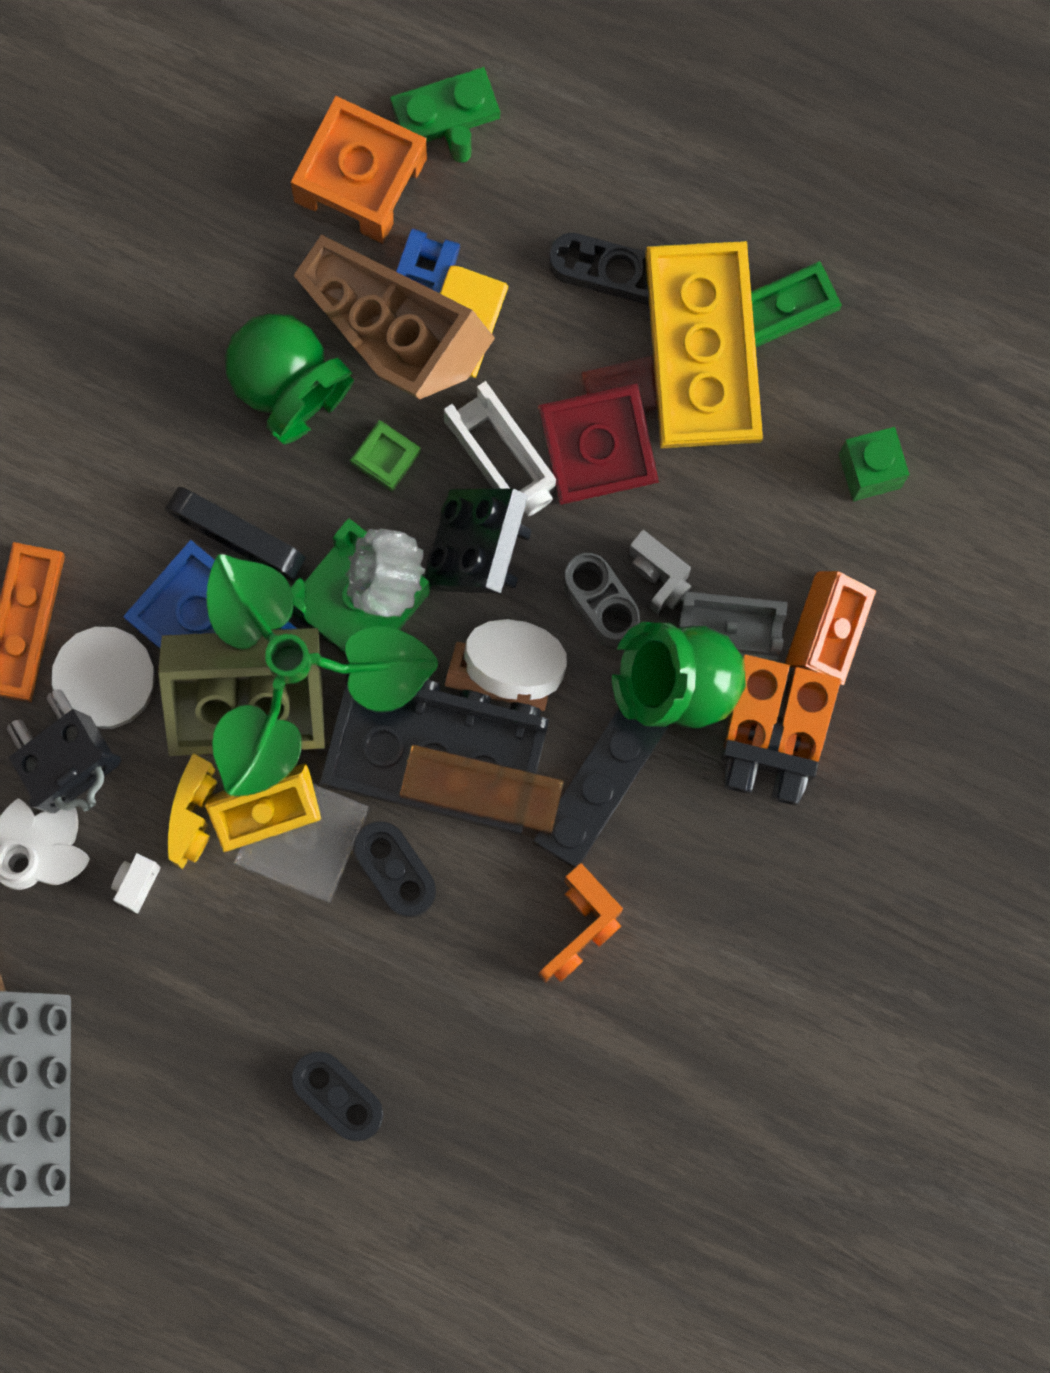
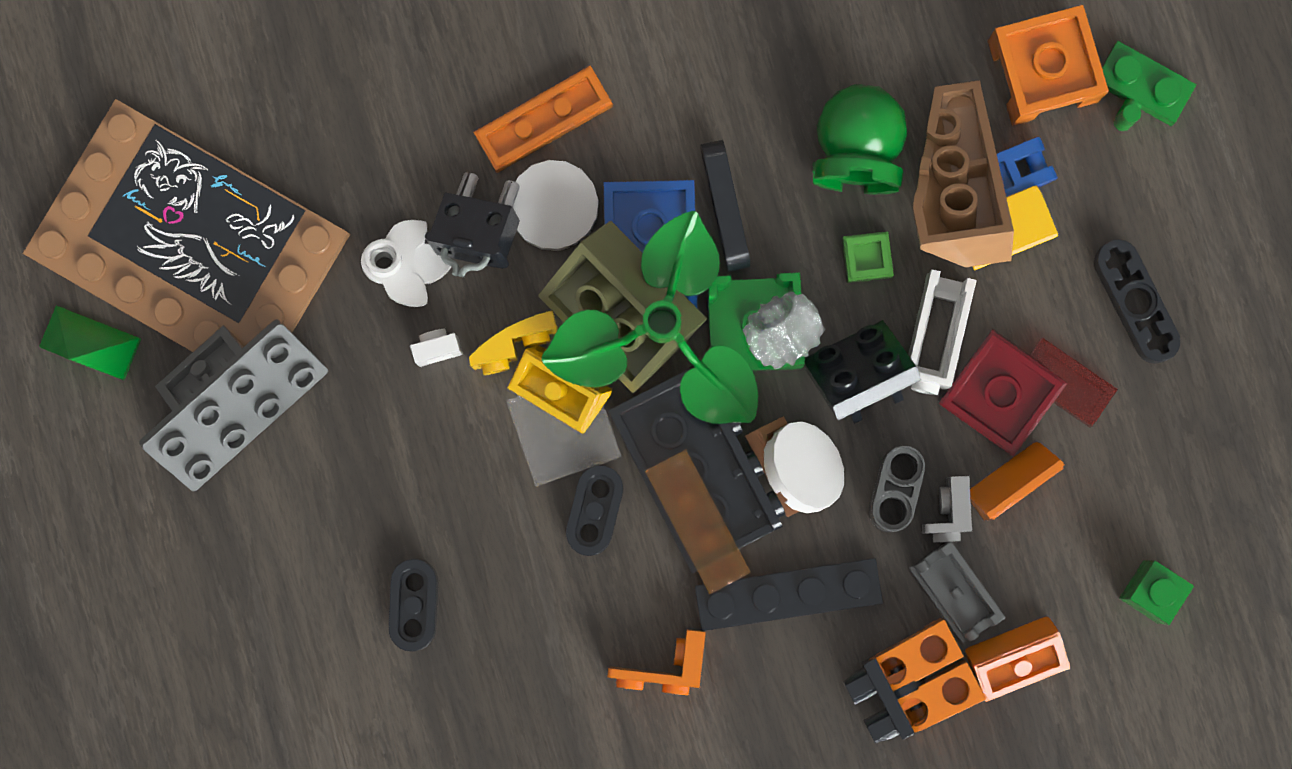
camera: 60 degrees right, 5 degrees up
(678, 675) = (887, 589): green tile -> none
(680, 498) = (1014, 480): none -> orange slope
(703, 344) = (1136, 403): yellow tile -> none
(792, 303) = (1193, 425): green tile -> none

